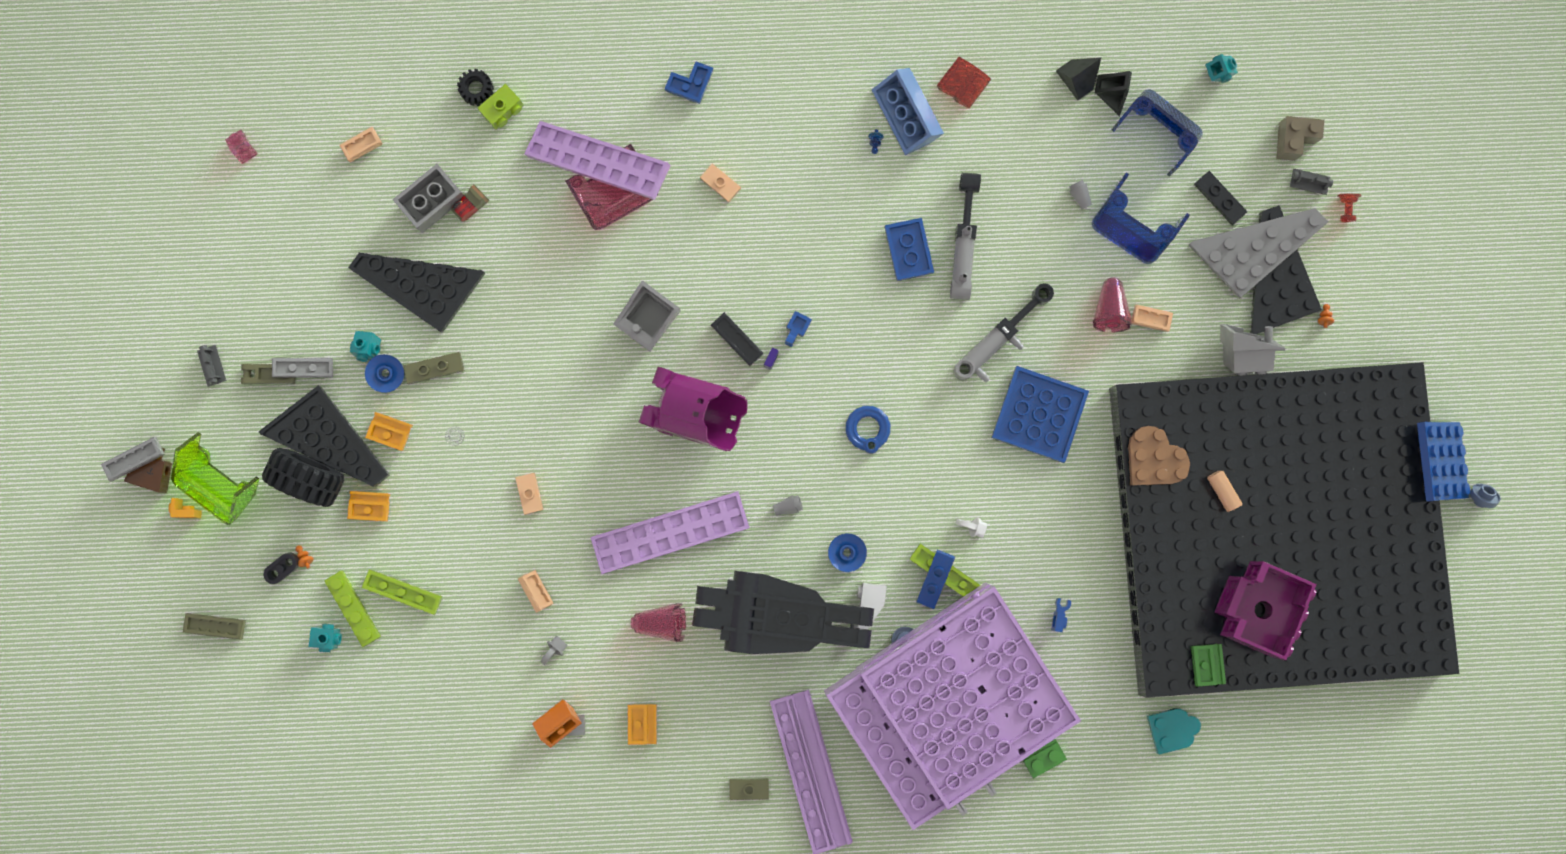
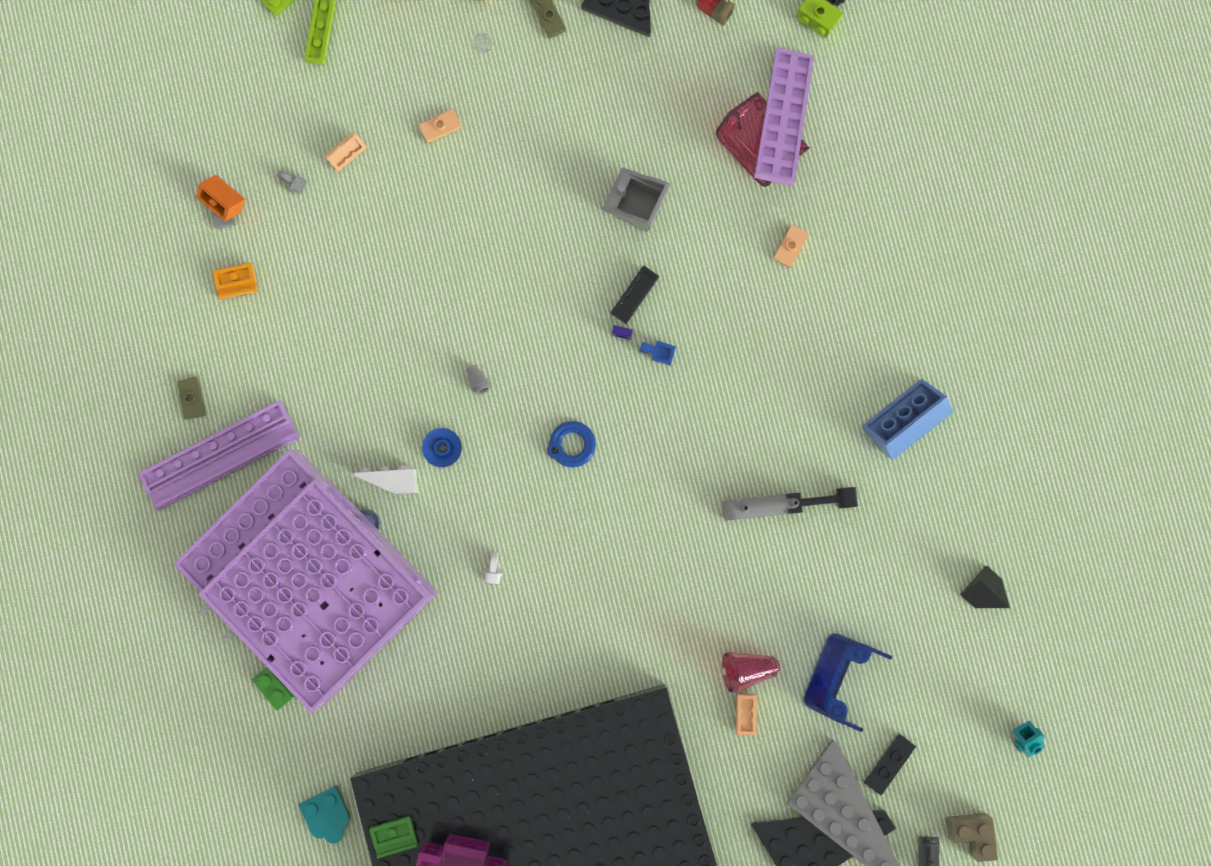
camera: 80 degrees right, 0 degrees up
(661, 622) = (337, 279): clear pink cone -> none
(669, 532) = (428, 269): lavender plate -> none
(692, 87) = (882, 198): blue plate -> none
(695, 410) = (545, 279): magenta piece -> none
(778, 616) = (360, 388): black piece -> none
(875, 138) = (867, 393): clear blue hair -> none
(909, 249) = (763, 449): blue plate -> none
(935, 579) = (431, 541): blue plate -> none
(956, 579) = (442, 548): lime plate -> none
(964, 82) = (951, 471): clear red slope -> none
(998, 337) = (691, 557): light grey piece -> none
(1040, 414) = (621, 616): blue plate -> none
(1059, 620) = (414, 676): blue plate -> none
(1081, 194) = (861, 615): light grey cone -> none
(1113, 89) = (979, 628): pearl dark grey slope -> none
(1152, 103) = (974, 674): clear blue windscreen -> none
(1154, 460) = (594, 742): medium nougat plate -> none
(1224, 491) = (576, 820): light nougat brick -> none
(1248, 351) = (732, 822): light grey piece -> none

